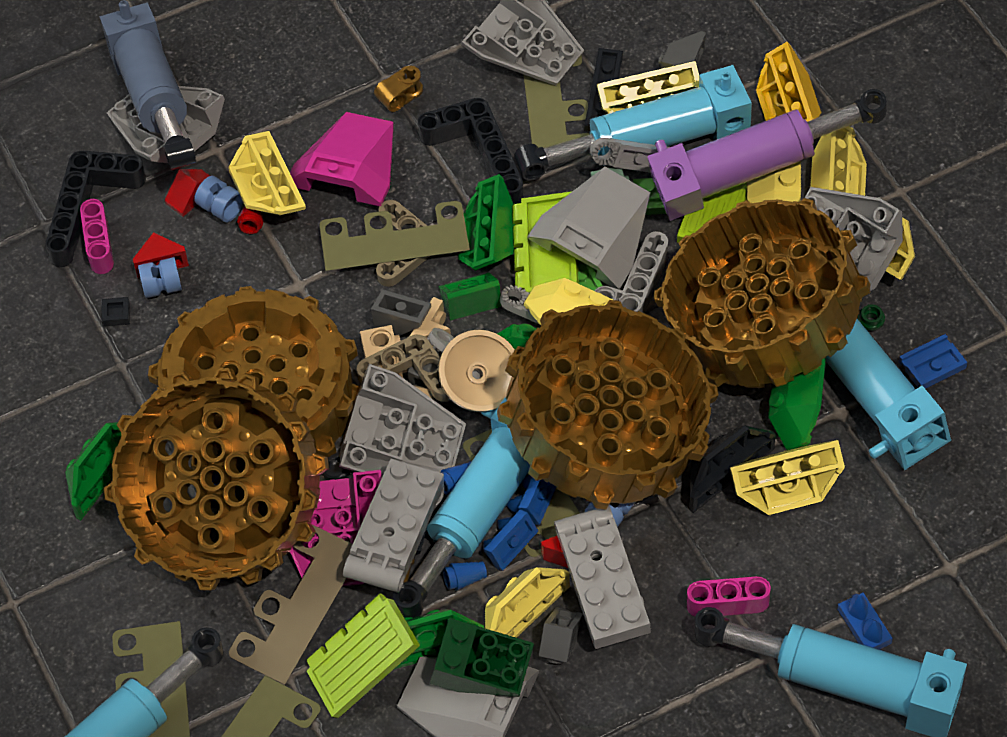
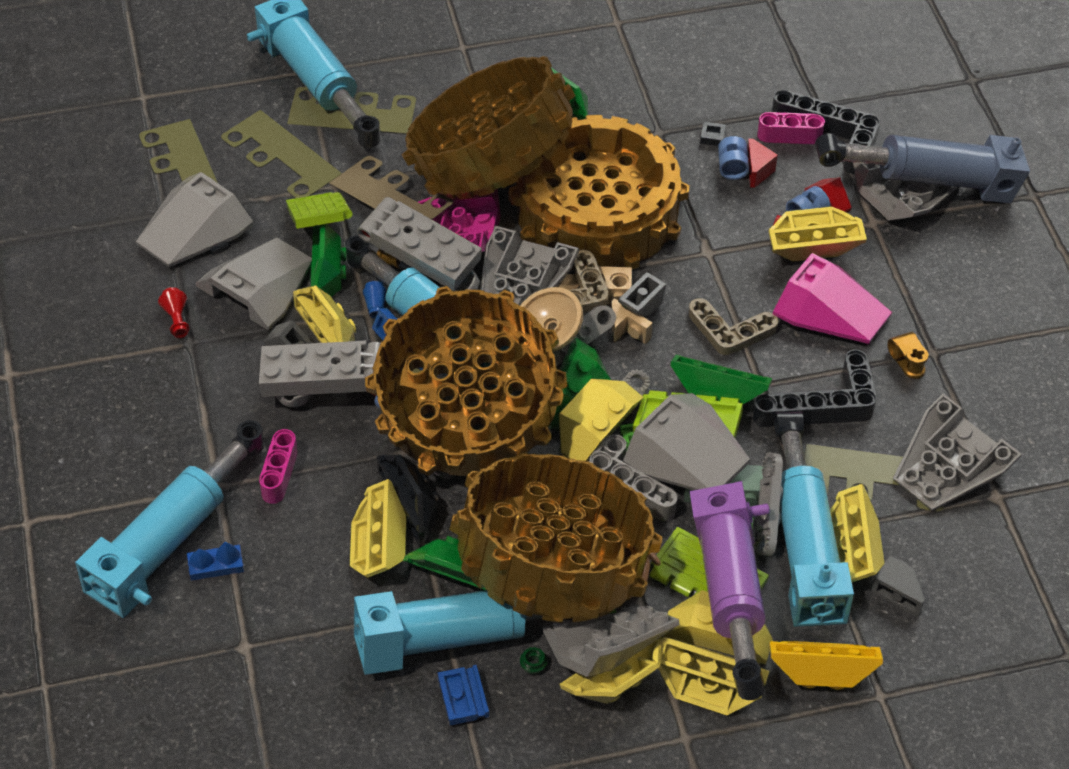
camera: 100 degrees right, 5 degrees down
(390, 245) = (725, 315): olive piece -> none
(471, 295) = (656, 356): green slope -> none
(481, 661) = (275, 268): dark green slope -> none
(606, 69) = (893, 519): black tile -> none

